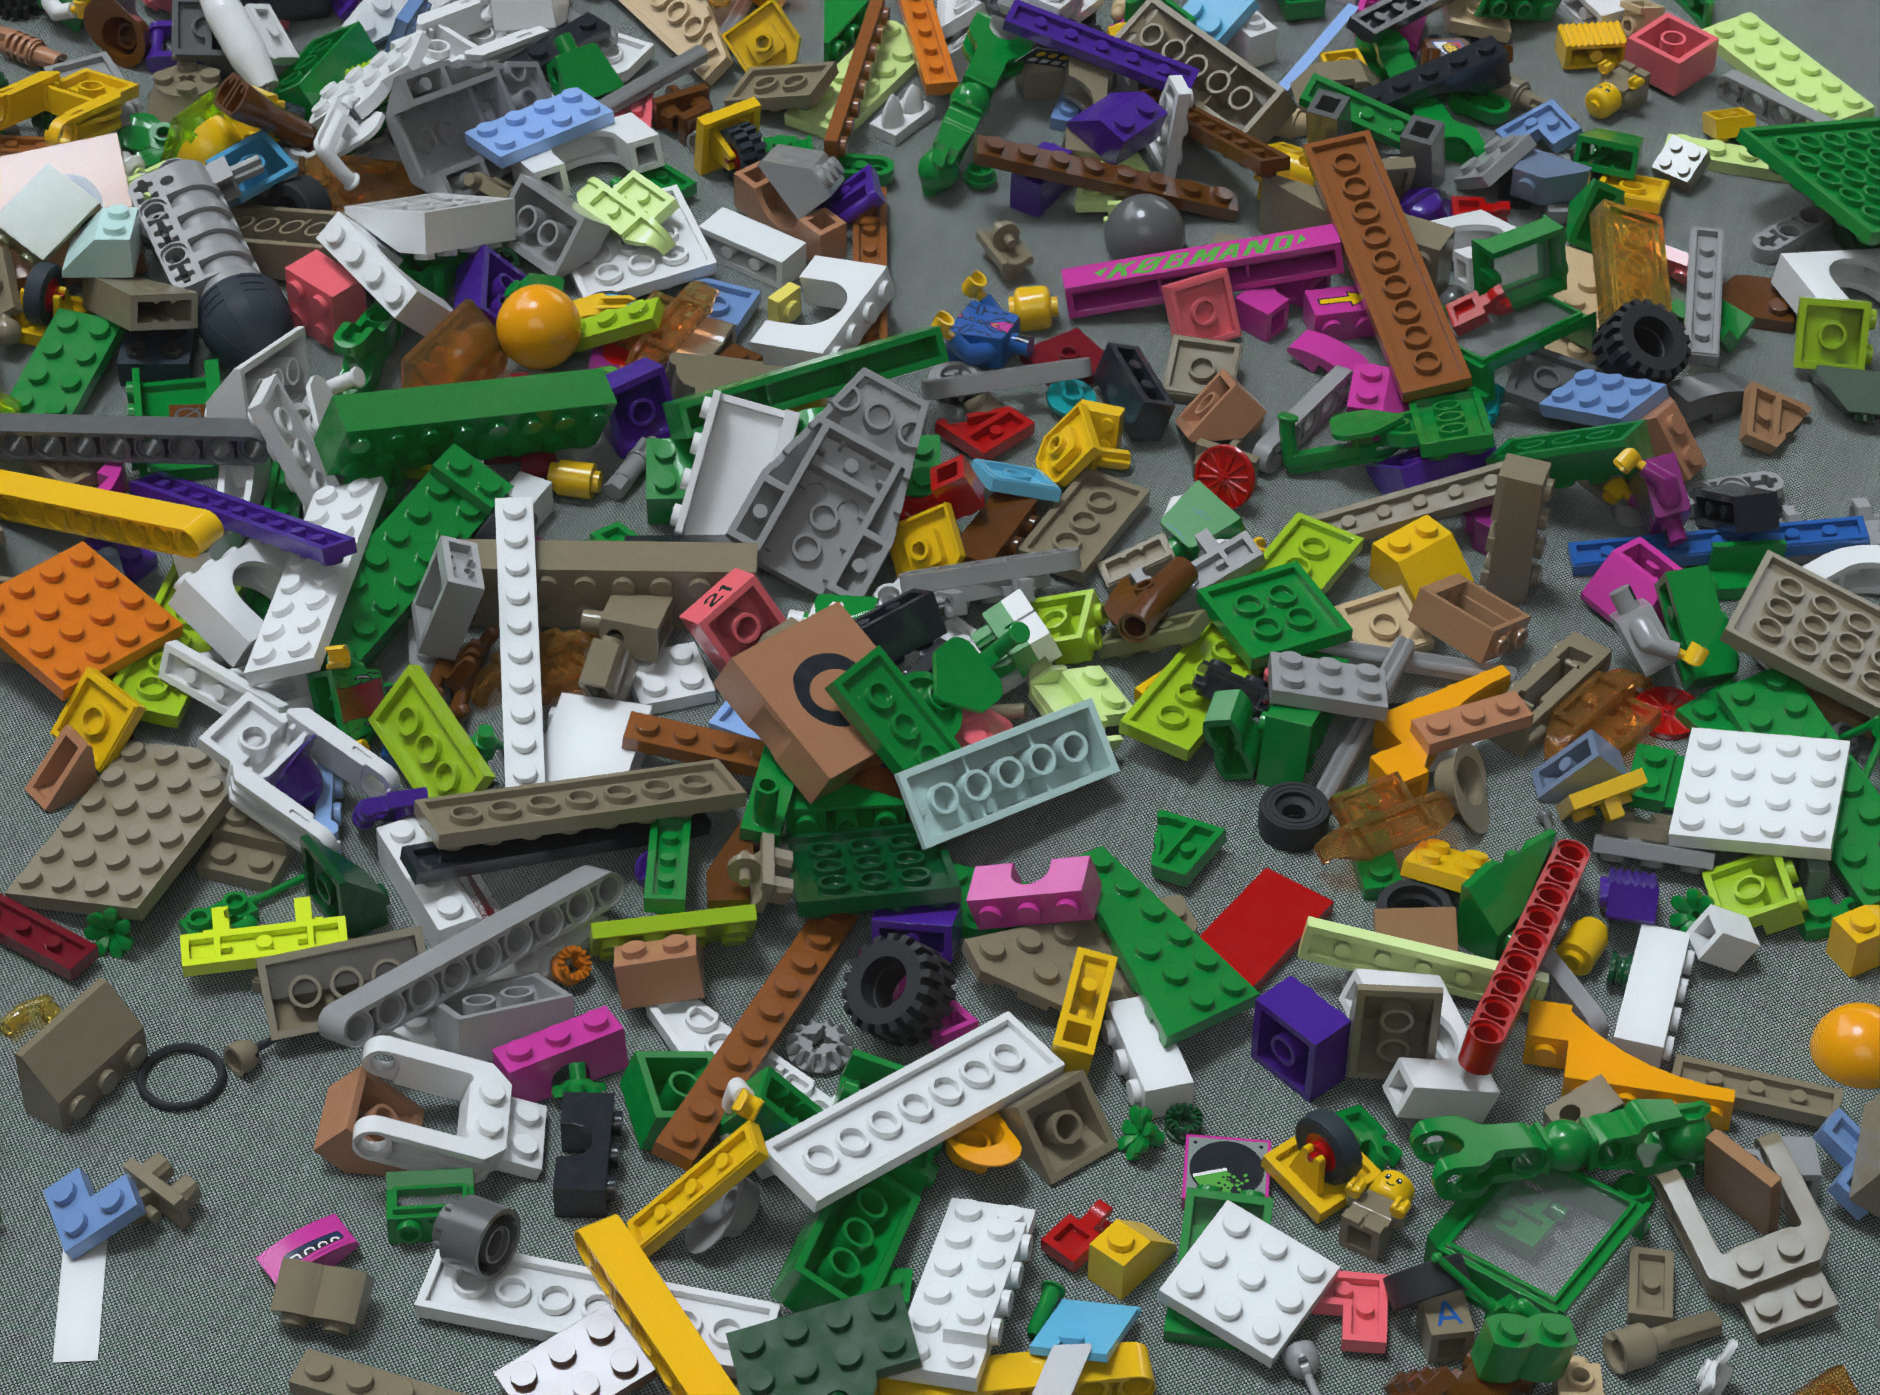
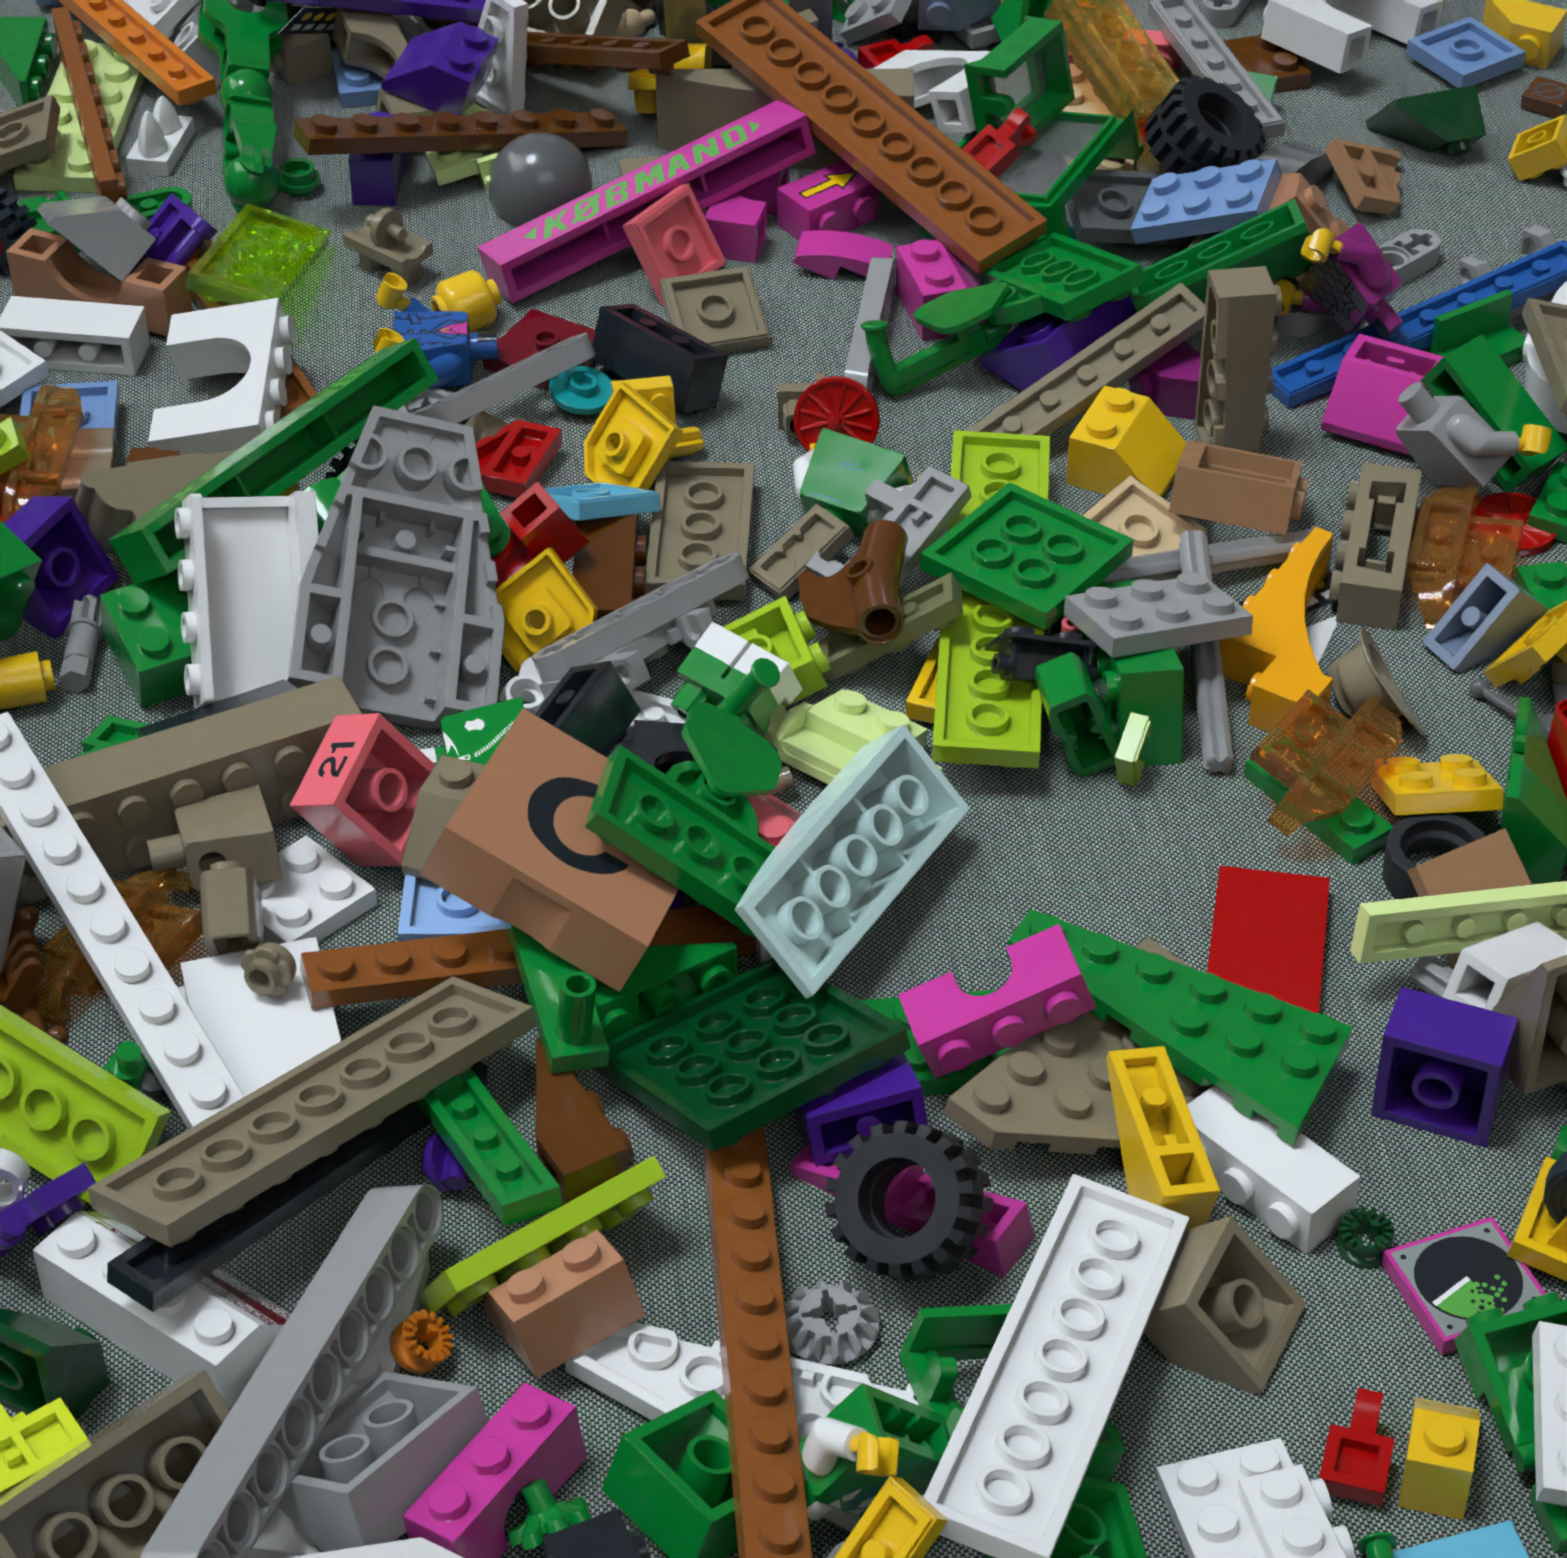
camera: 25 degrees left, 0 degrees up
(606, 714) = (269, 969): none -> dark tan plate
(764, 873) = (623, 1109): dark tan hips -> none
(785, 304) = (158, 387): light yellow plate -> none
(906, 231) = (257, 258): none -> clear neon green plate
(984, 1145) = (1167, 1376): light orange piece -> none
(1139, 1133) = (1328, 1274): green plant -> none
(1183, 847) = (1101, 877): green wing -> none
(1221, 411) = (780, 344): nougat slope -> none
(1257, 770) = (1127, 756): none -> lime tile
(1294, 799) = (1200, 813): black tyre -> none
(1471, 722) = (1340, 604): nougat plate -> none
(1737, 508) = (1445, 269): black brick -> none
(1833, 333) = (1376, 66): lime plate -> none

